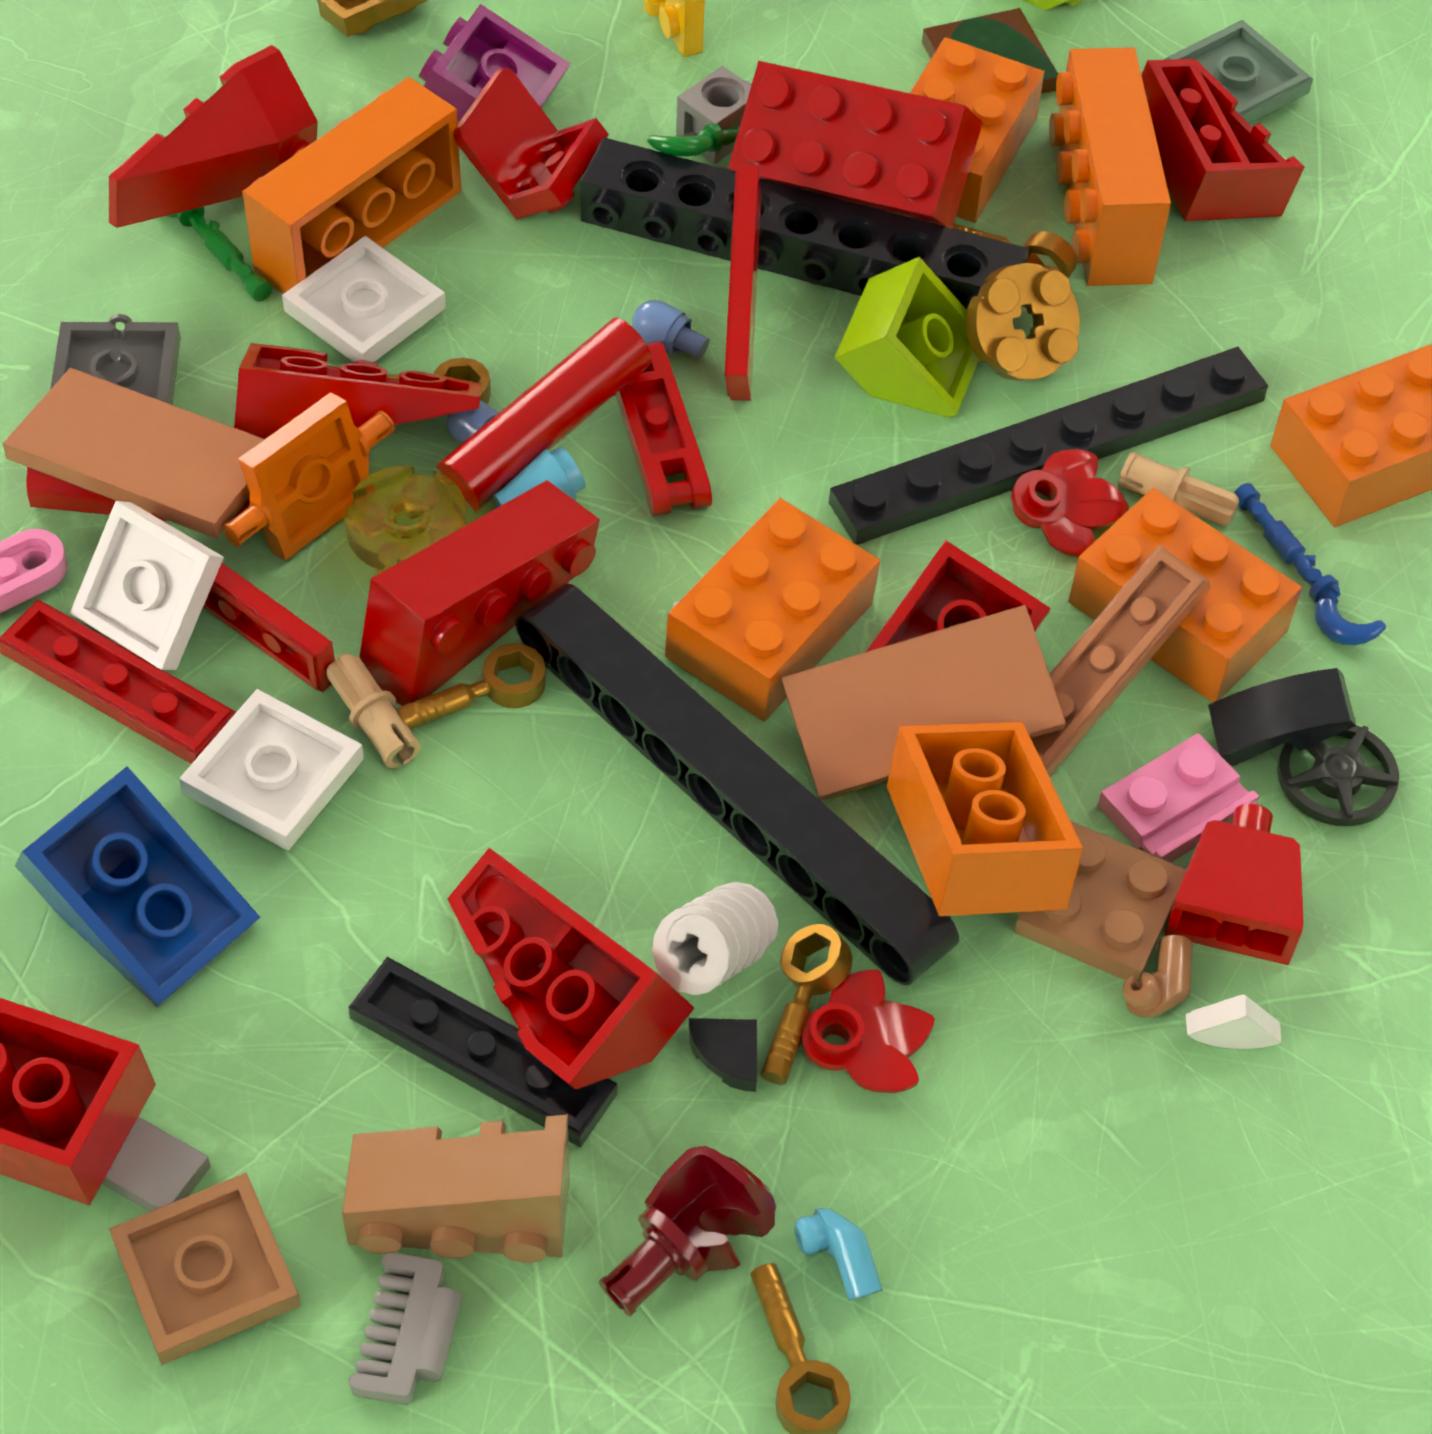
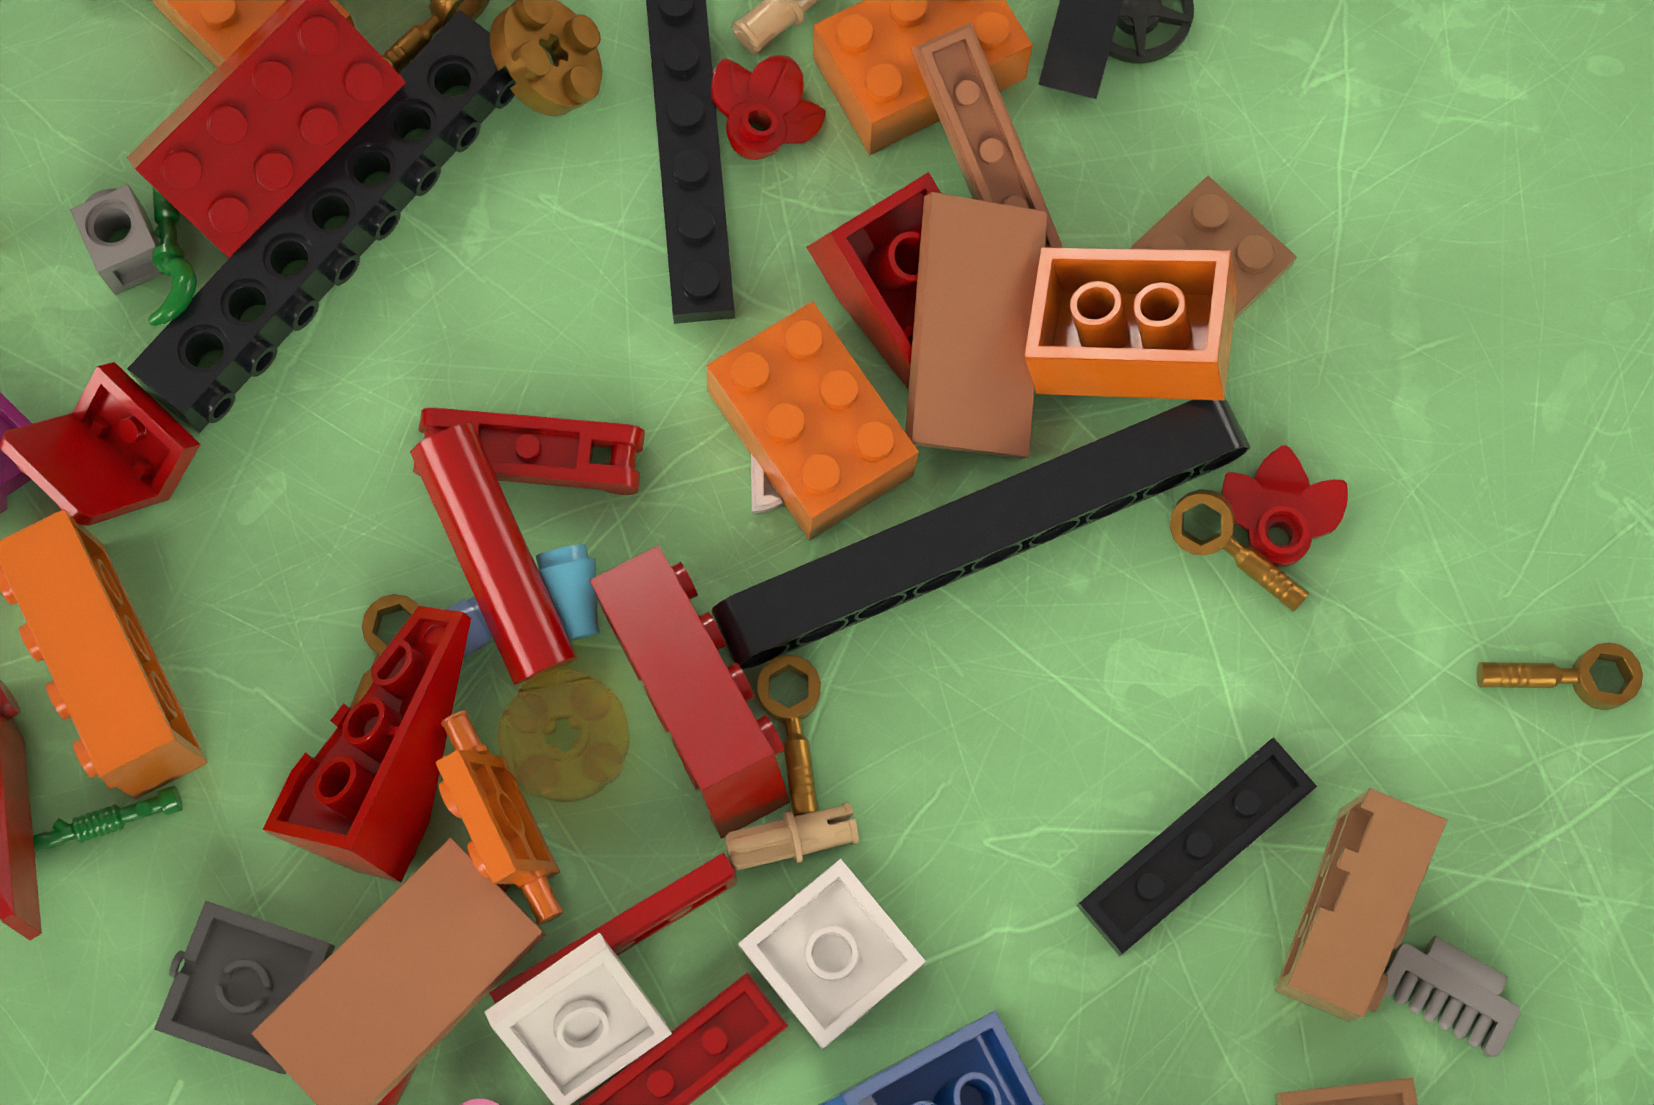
camera: 70 degrees left, 20 degrees up
(364, 301) = (244, 693): white plate -> none
(569, 986) = (1162, 748): red wedge -> none
(665, 323) = (403, 397): medium blue cylinder -> none
(689, 1222) = (1441, 732): dark red piece -> none
(714, 937) = (1179, 601): white piece -> none
(727, 1049) = (1262, 630): black tile -> none
(743, 283) = (399, 298): red tile -> none
(846, 1244) = (1486, 596): medium azure arm -> none
(910, 341) = (516, 170): lime slope -> none
(1167, 986) = (1310, 242): medium nougat arm -> none
(1174, 797) = (1125, 153): bright pink plate -> none
(1234, 1025) = (1369, 206): white tile -> none
(1242, 889) = (1241, 136): red torso -> none

